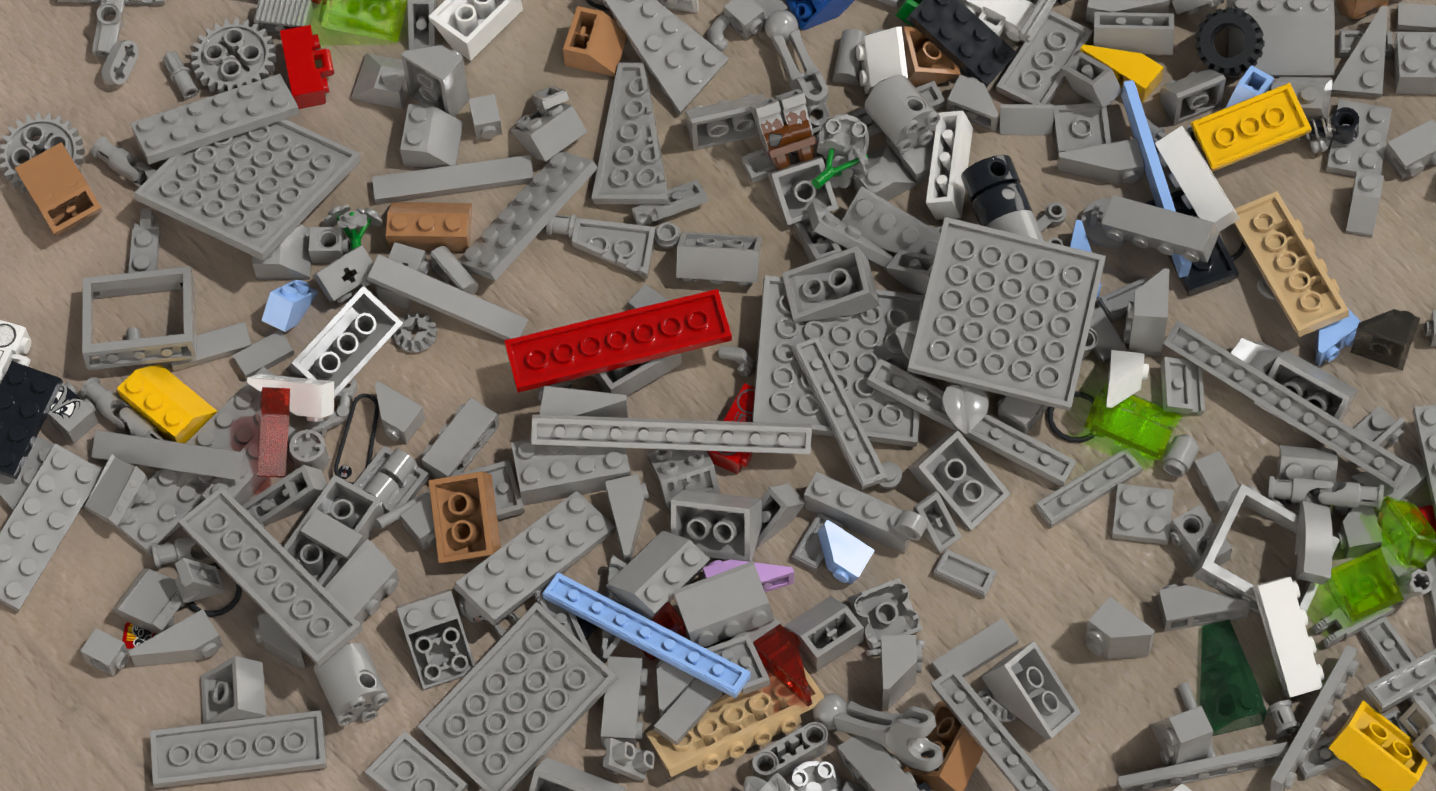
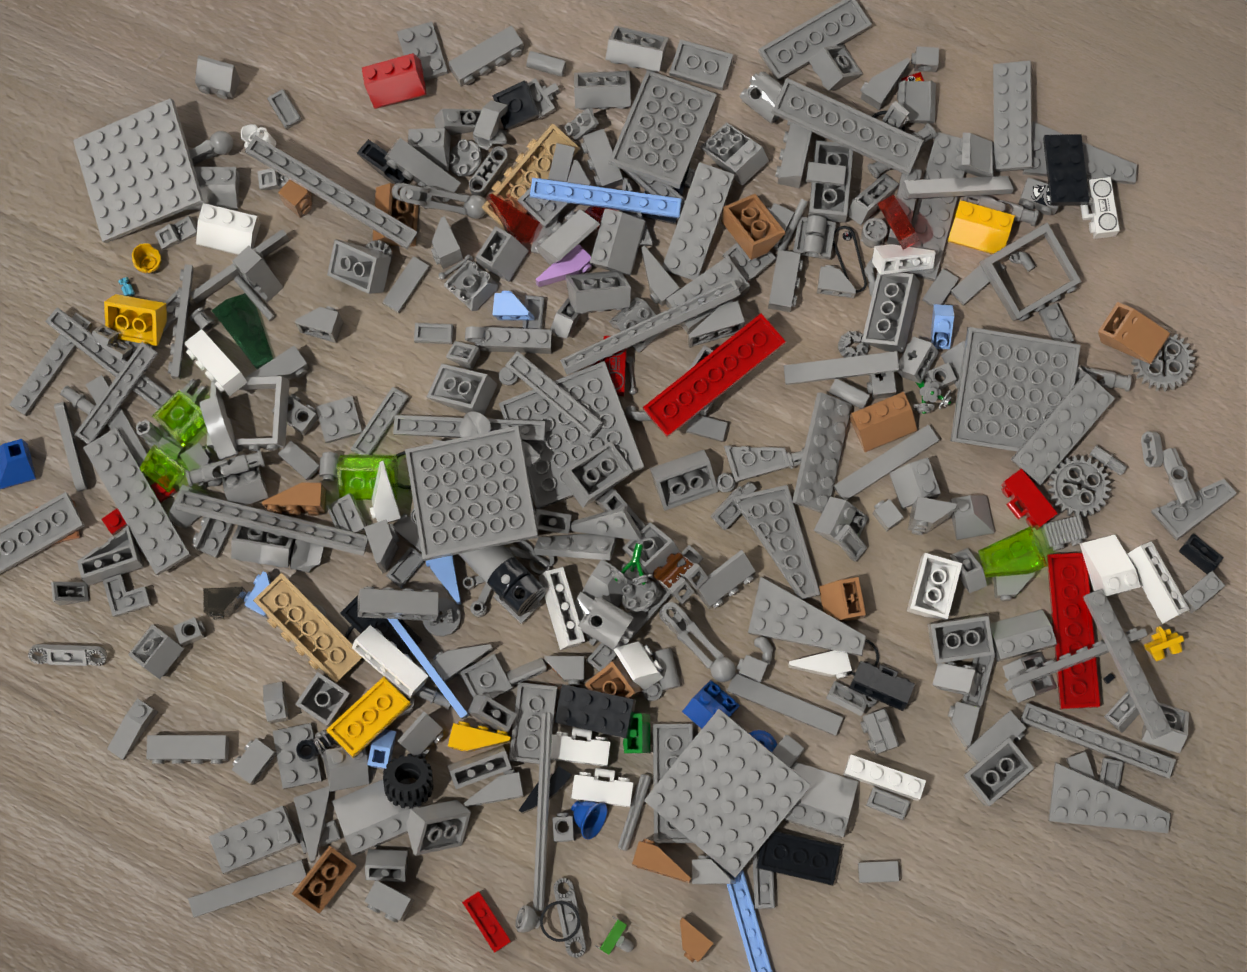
camera: 155 degrees right, 15 degrees up
(730, 394) = (629, 360): none -> light grey hinge
(1241, 421) = (299, 499): none -> medium nougat slope
(1300, 177) = (323, 699): none -> light grey brick

